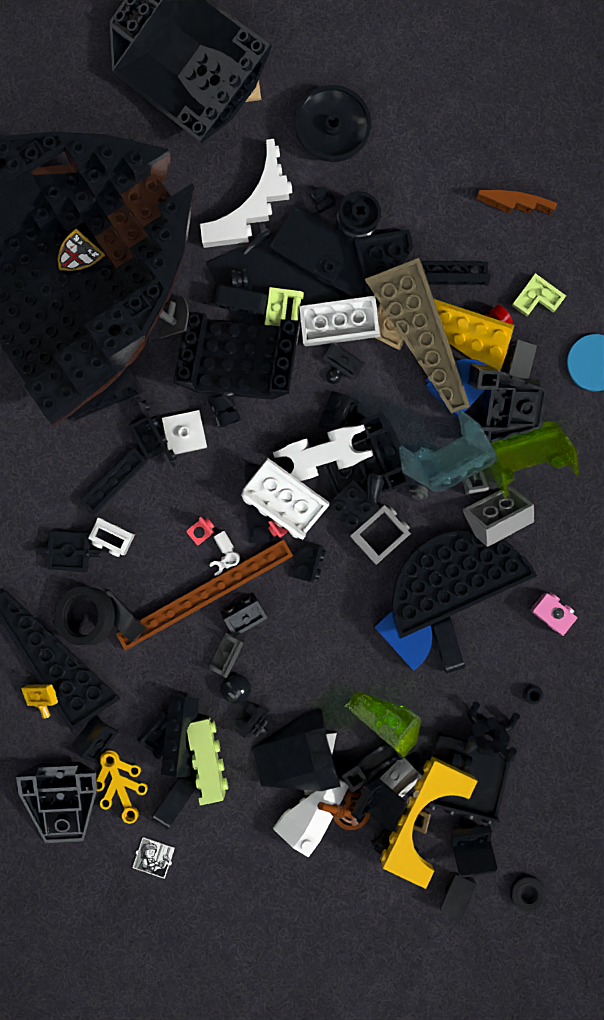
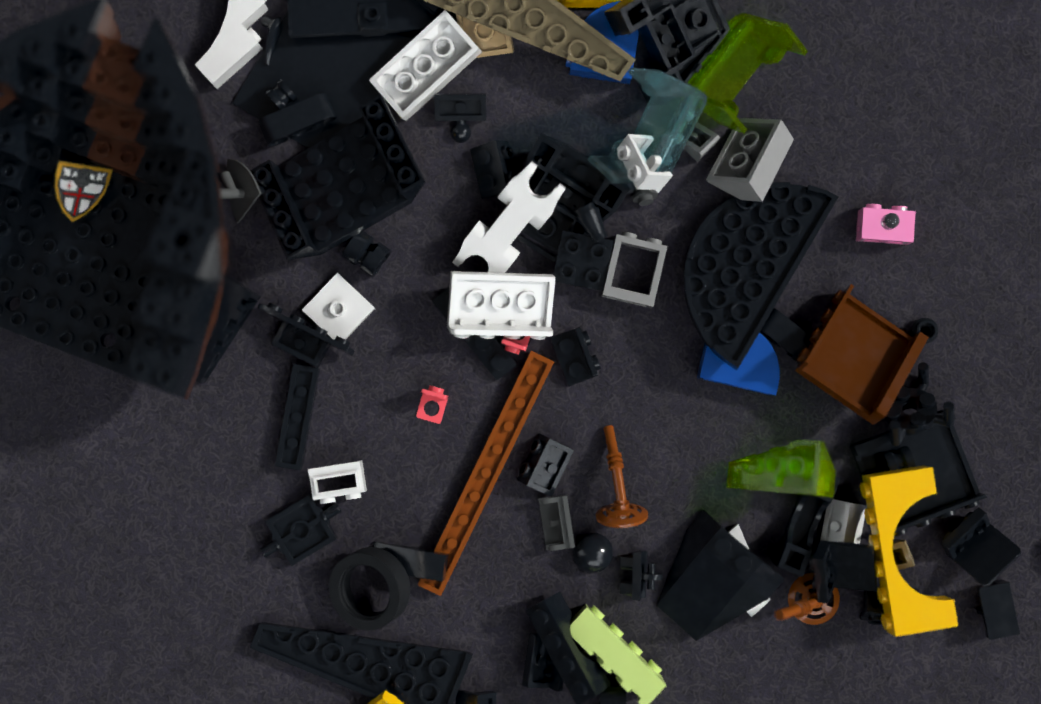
camera: 30 degrees left, 0 degrees up
(231, 558) = (487, 411): white bar -> none
(271, 674) = (622, 508): none -> dark orange dish
(278, 304) = (343, 94): yellowish green plate -> none
(305, 823) = (775, 646): white wedge -> none
(426, 472) = (638, 168): none -> white window
(481, 682) = (859, 357): none -> reddish brown panel

